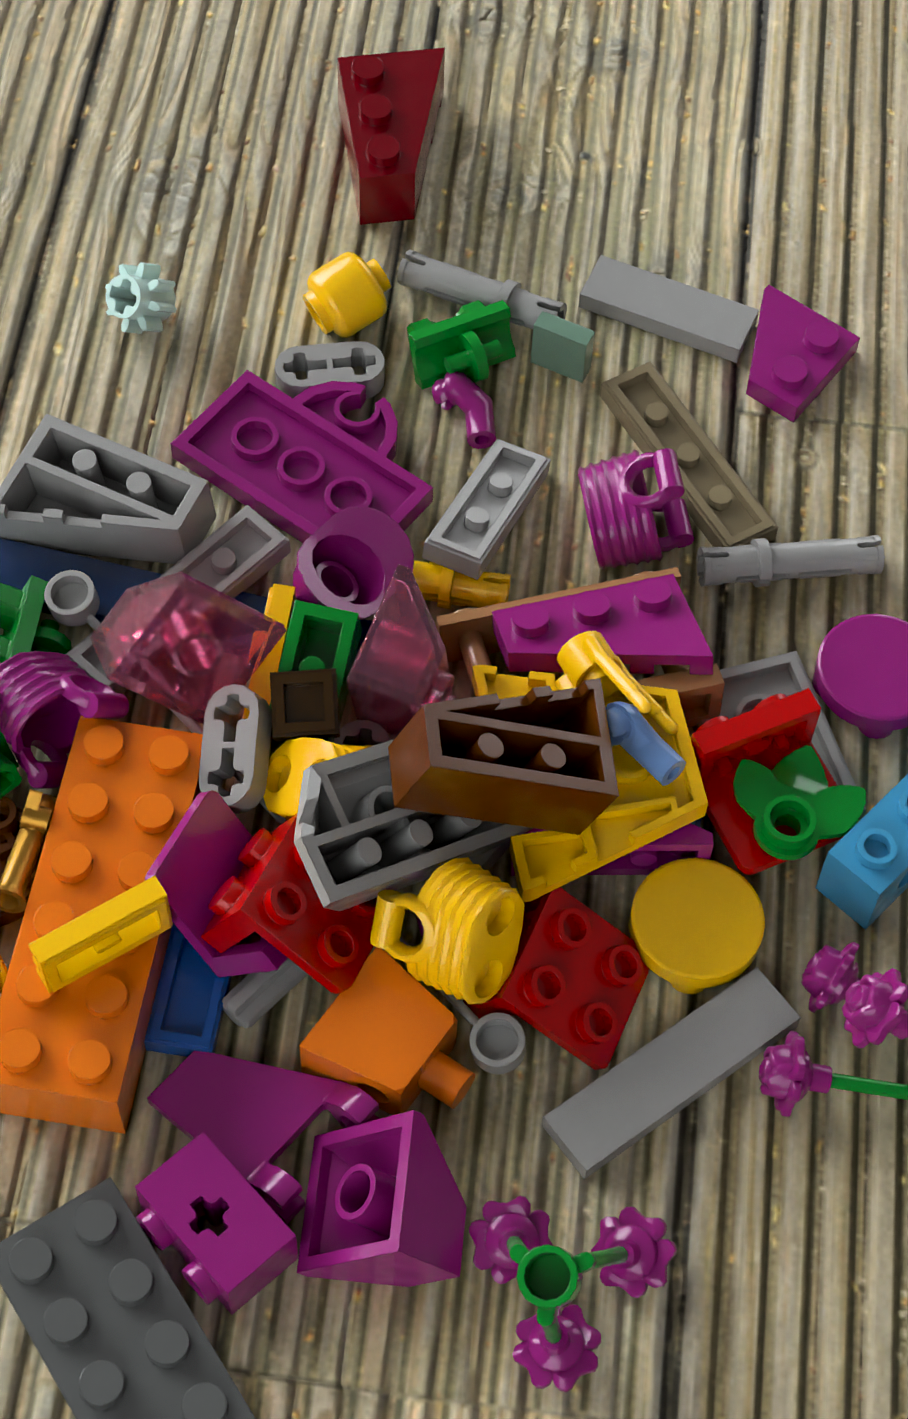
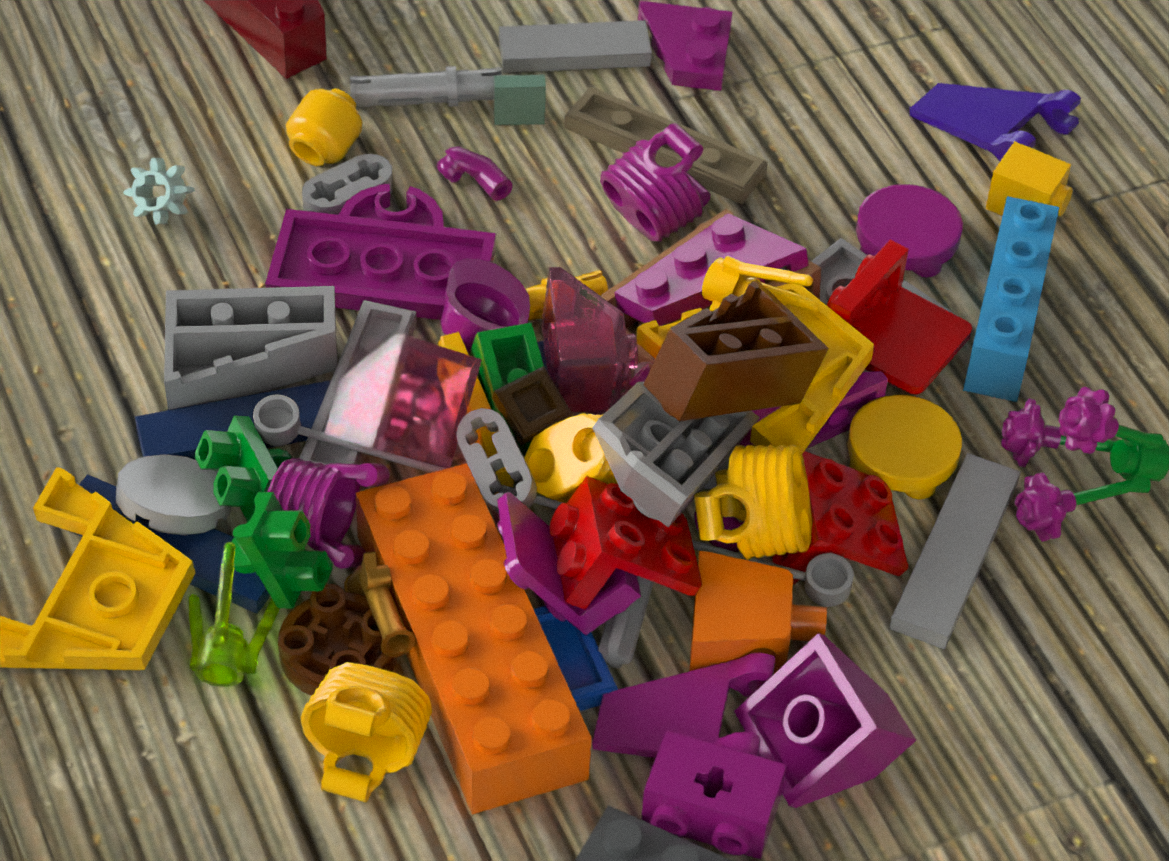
camera: 30 degrees left, 10 degrees down
(101, 934) = (507, 618): yellow tile -> none
(463, 343) = (442, 123): green hips -> none
(486, 509) = (546, 229): light grey tile -> none
(517, 1245) = (1006, 681): magenta plant -> none
(642, 742) = (824, 326): medium blue arm -> none
(777, 561) = (777, 186): light grey pin -> none
(796, 797) = (922, 330): green plate -> none

